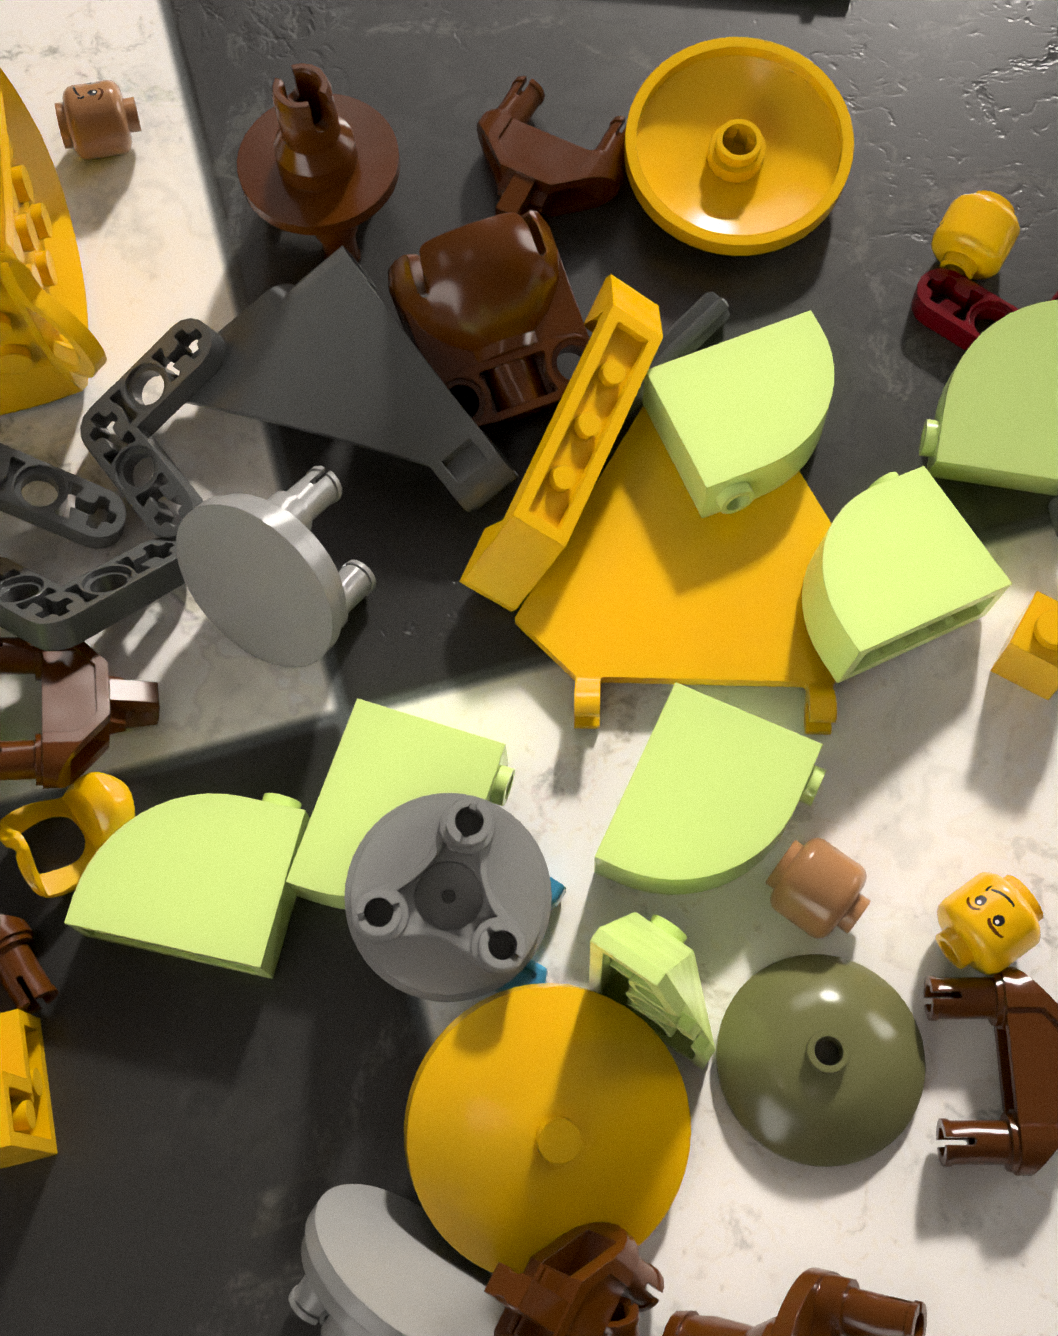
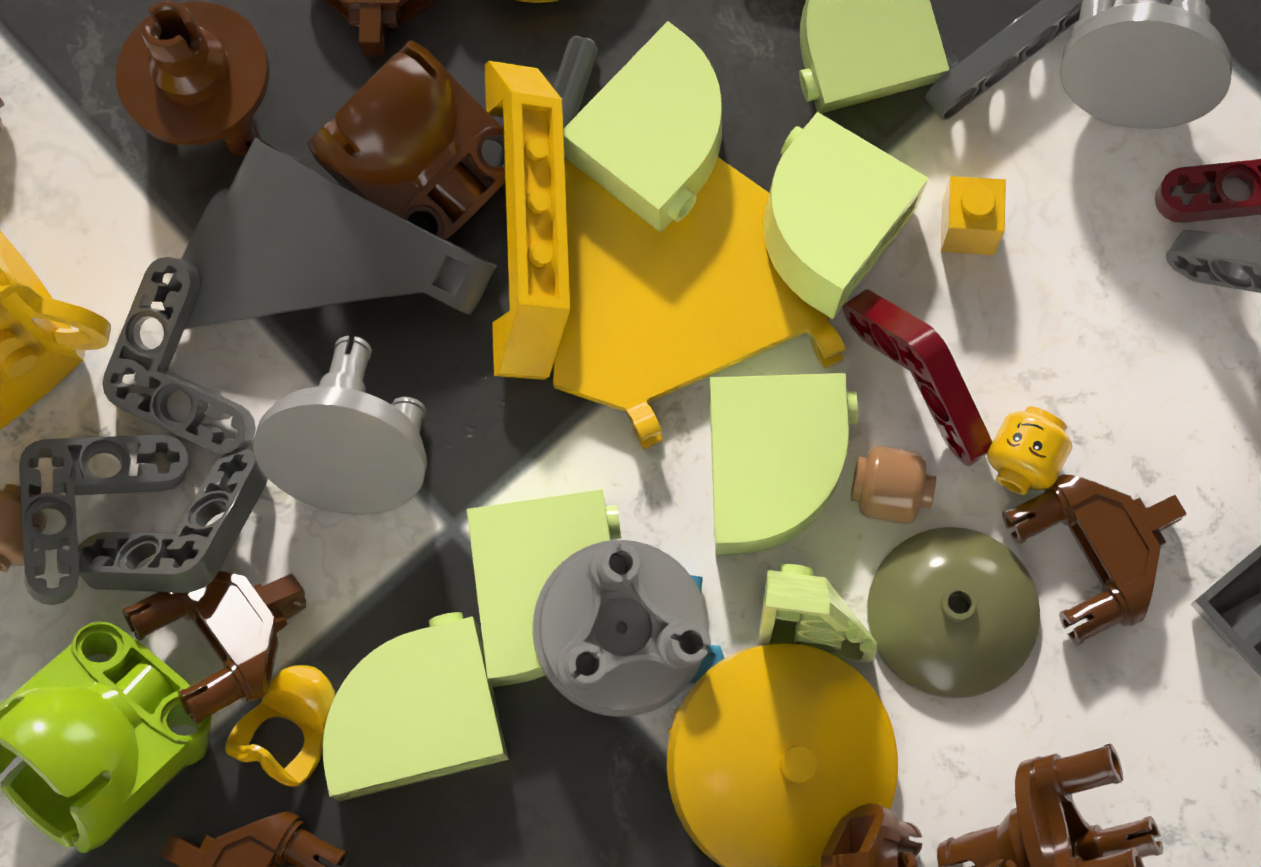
camera: 25 degrees left, 5 degrees up
(920, 780) = (929, 360): none -> dark red beam

